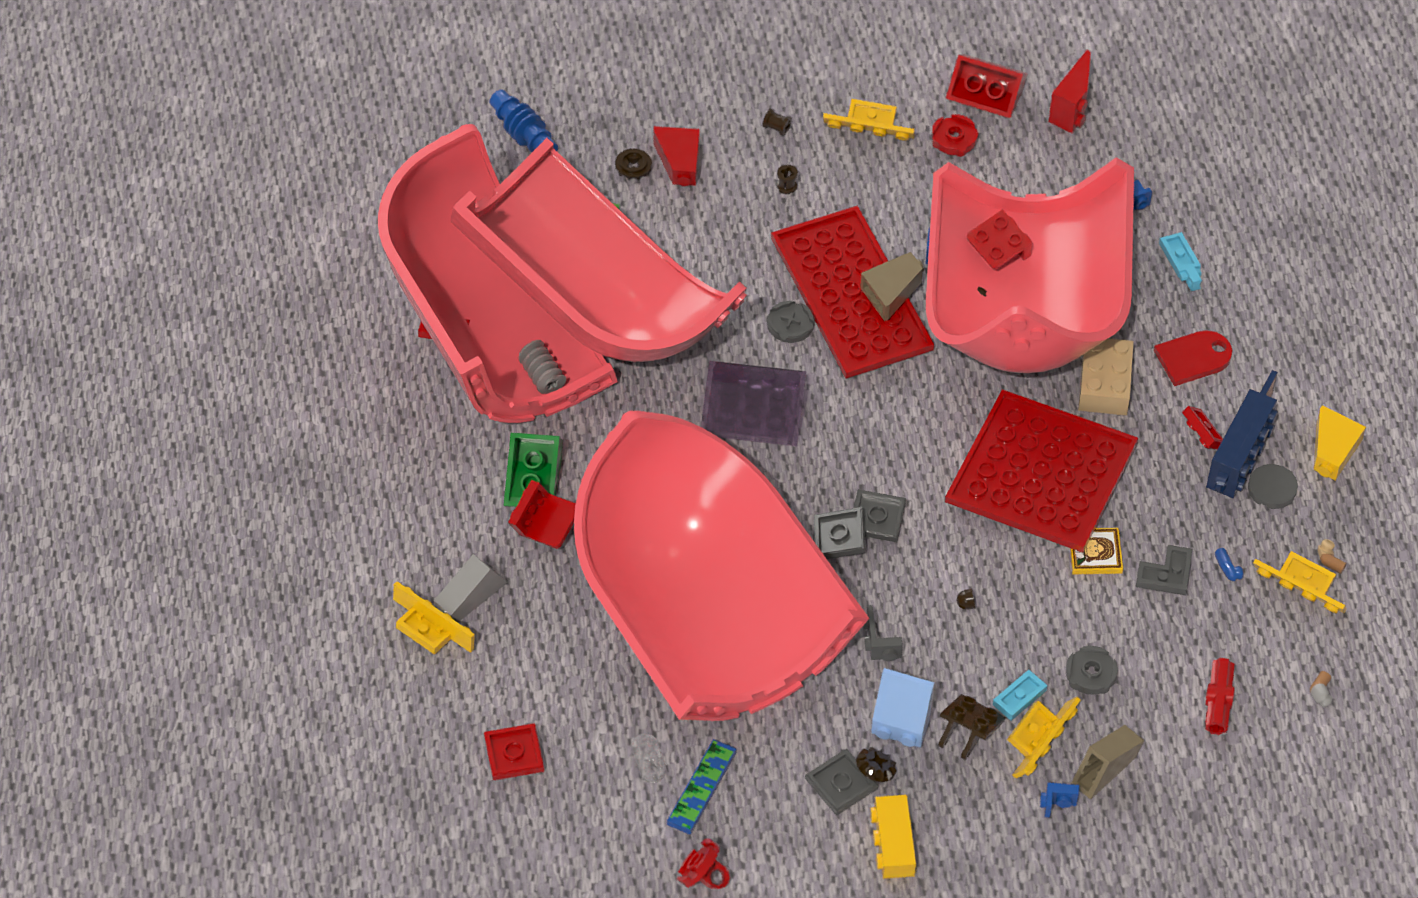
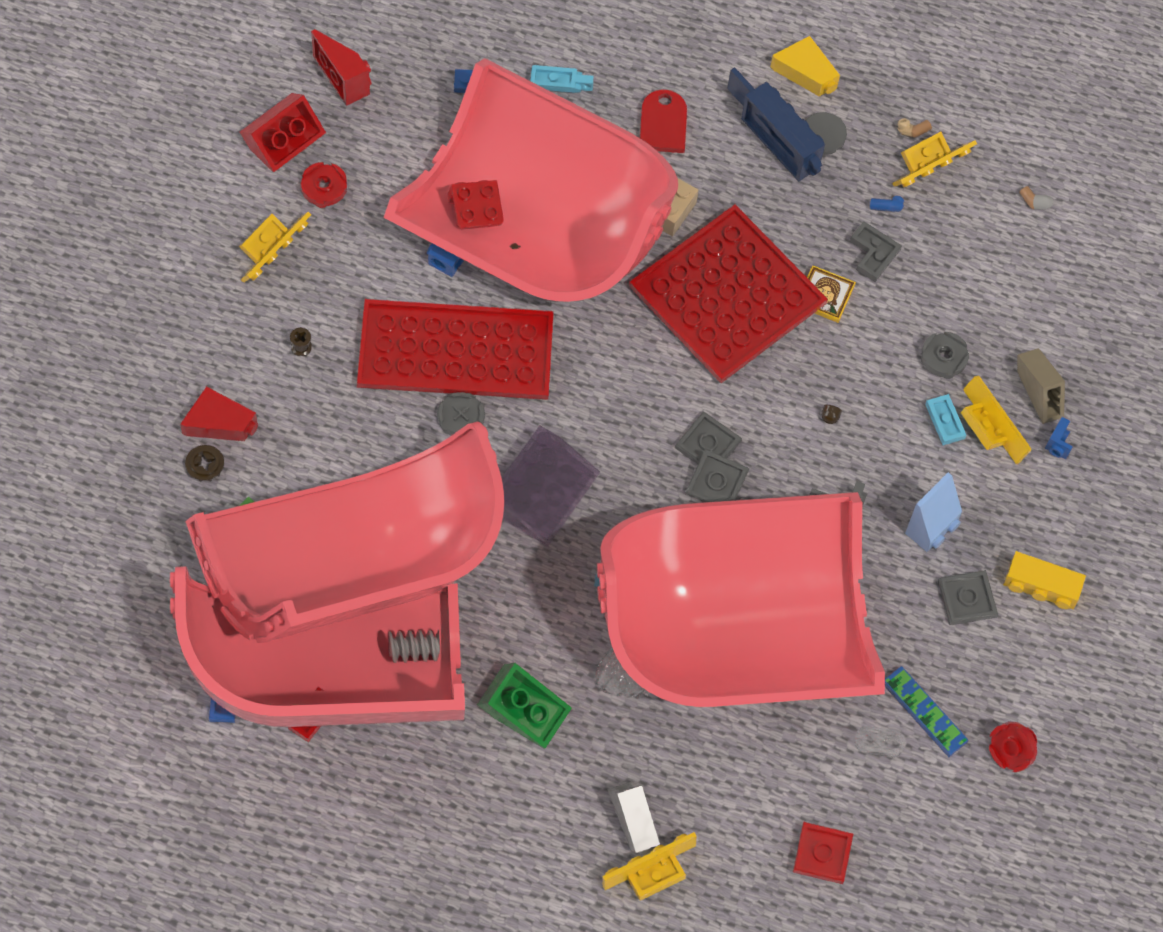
camera: 70 degrees left, 10 degrees up
(520, 121) = (107, 537): blue piece -> none
(543, 516) = (588, 715): red bracket -> none
(777, 122) = (226, 319): dark brown bush -> none
(871, 769) = (975, 566): dark brown gear -> none
(892, 283) = (478, 311): dark tan slope -> none
(973, 716) = (960, 463): dark brown plate -> none
(1201, 424) = (754, 152): red plate -> none
(1219, 696) = (1013, 273): red piece -> none

